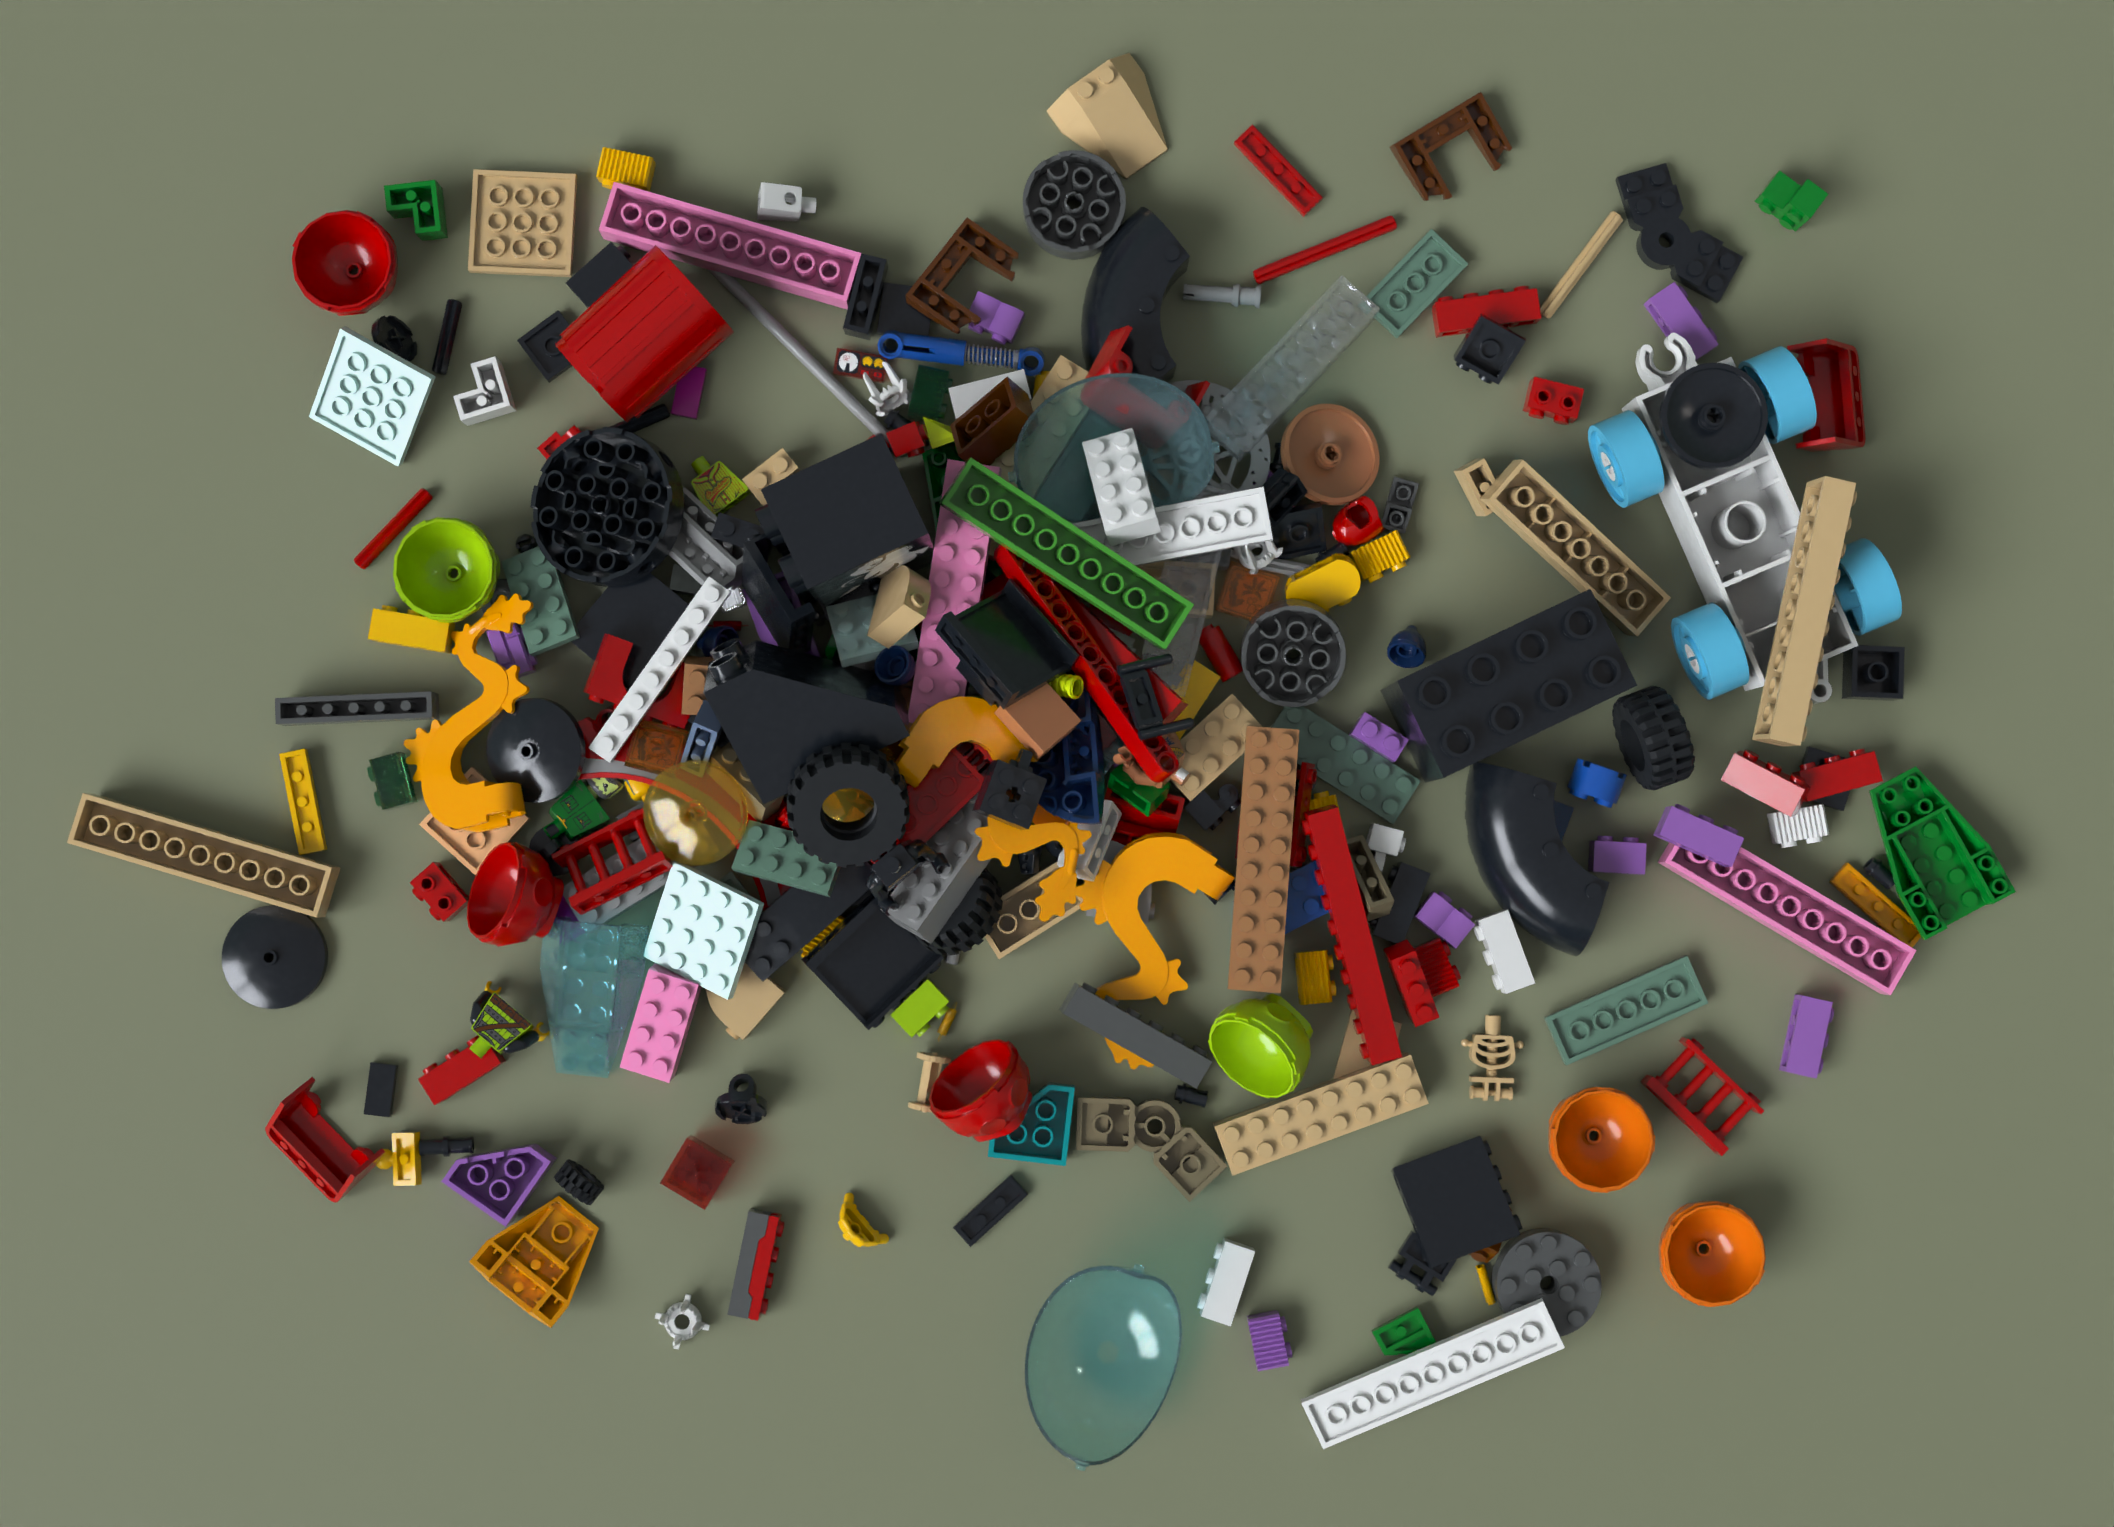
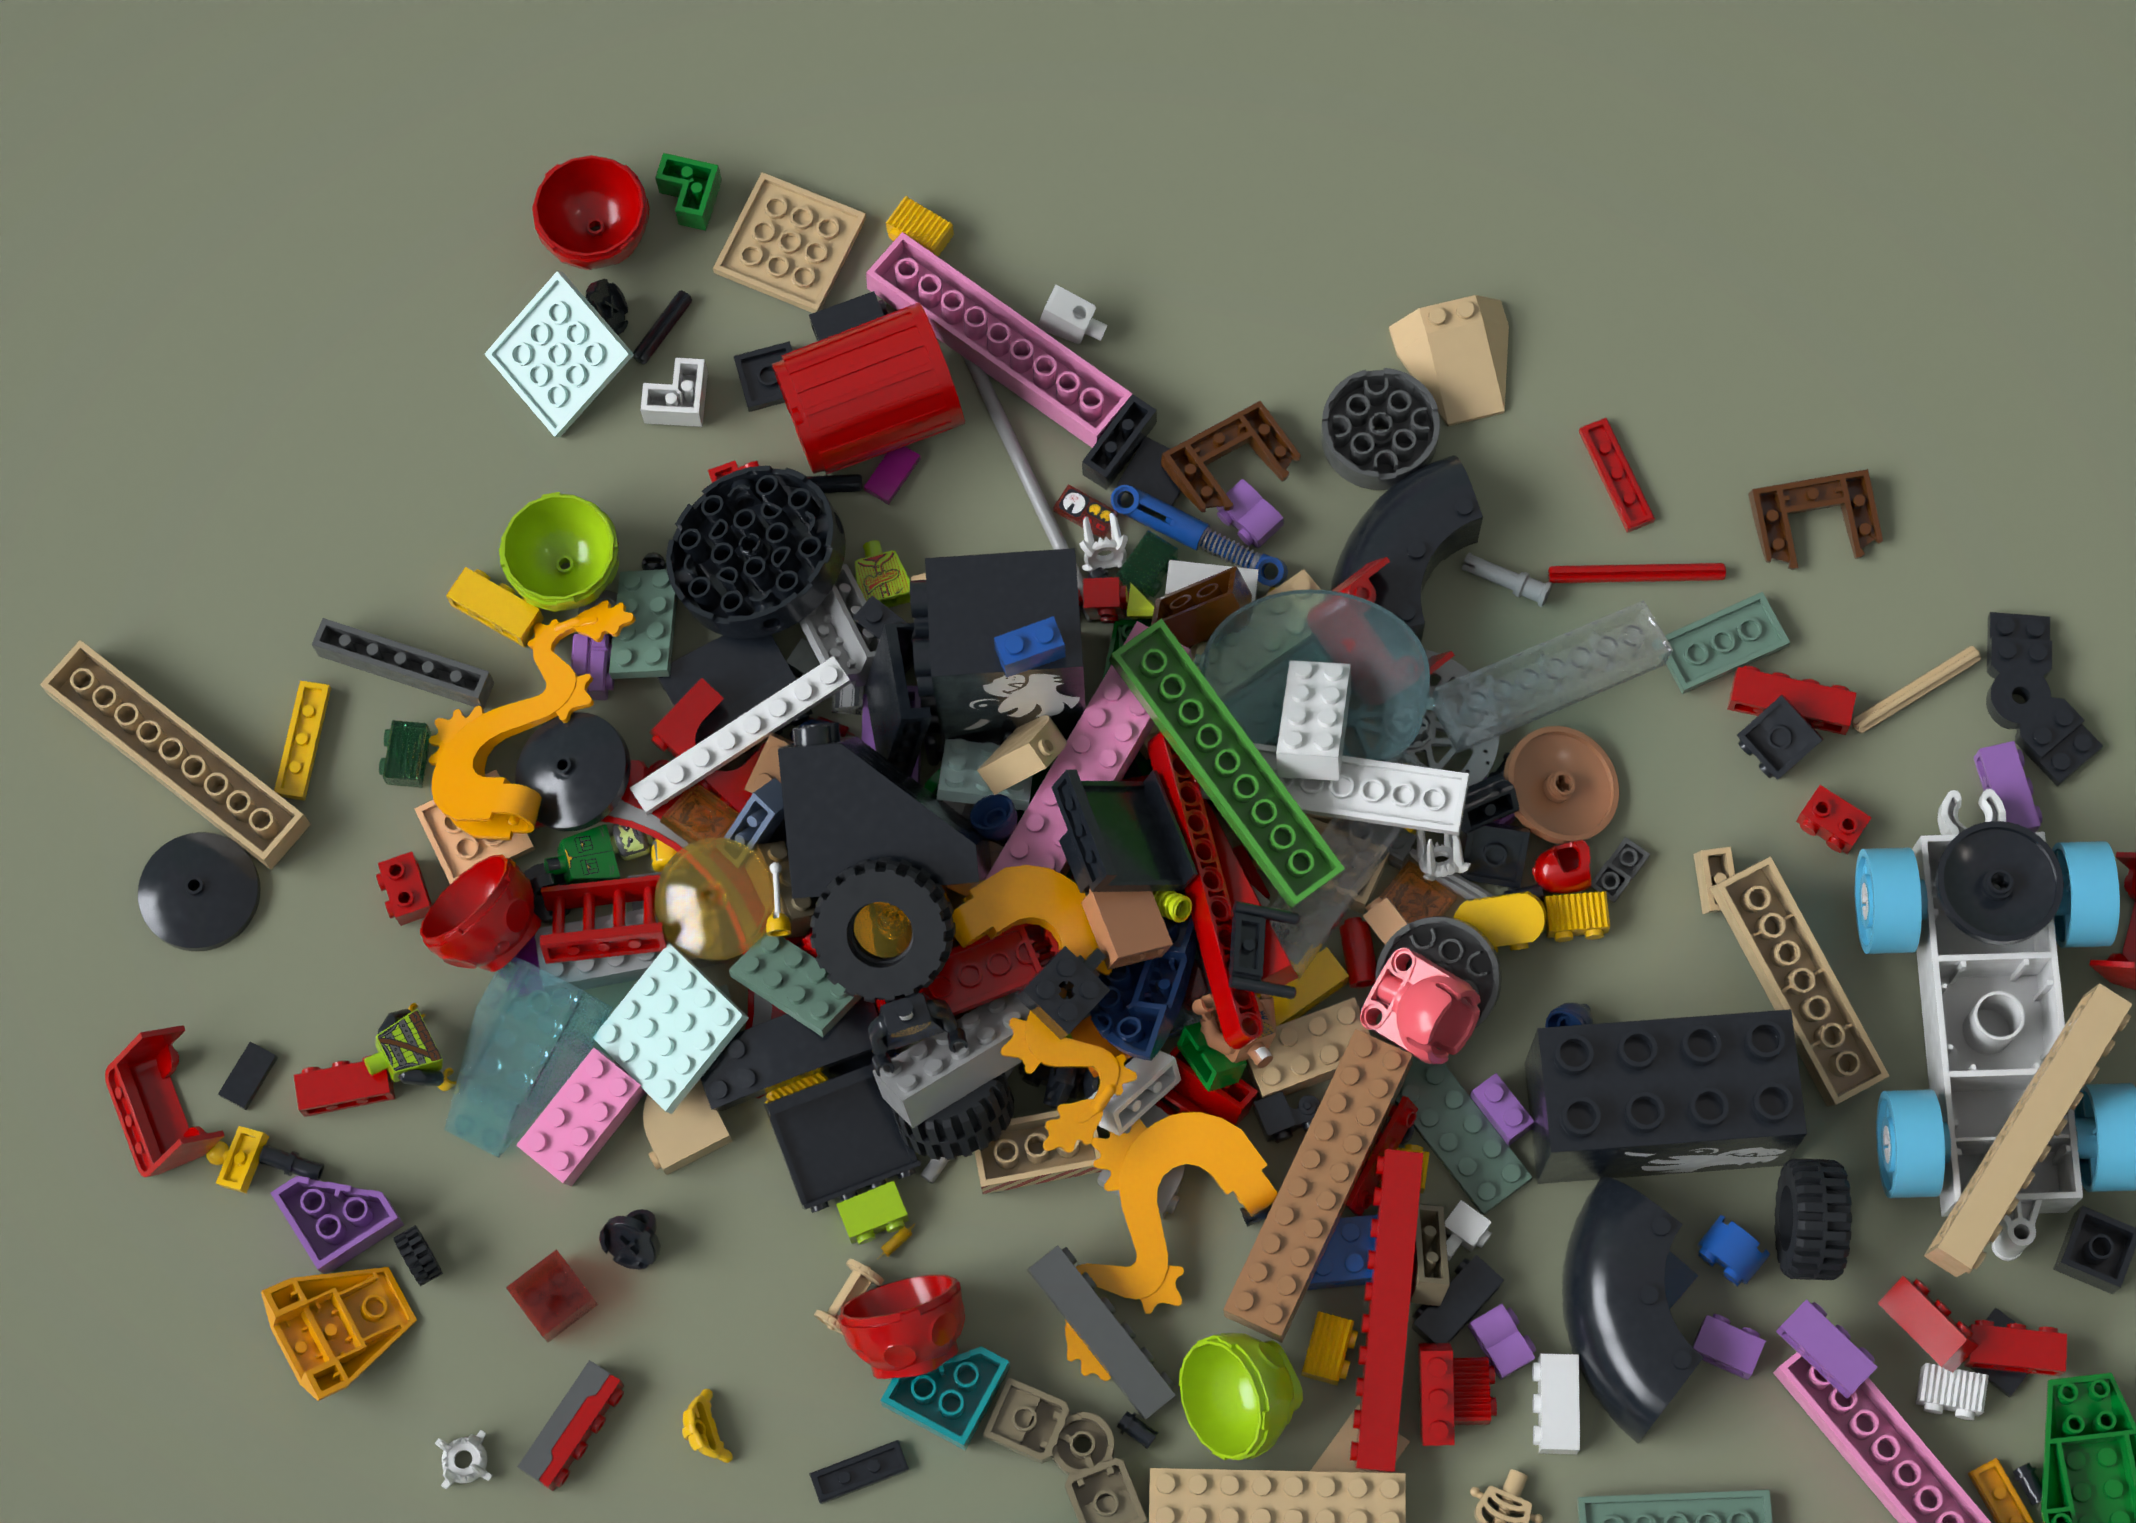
camera: 30 degrees right, 15 degrees down
(393, 528) = (521, 497): red axle -> none
(755, 815) = (778, 923): none -> hinge
(879, 536) = (1030, 647): none -> blue brick
(1232, 619) = (1384, 918): none -> light nougat brick
(1291, 688) = (1421, 1007): none -> coral piece

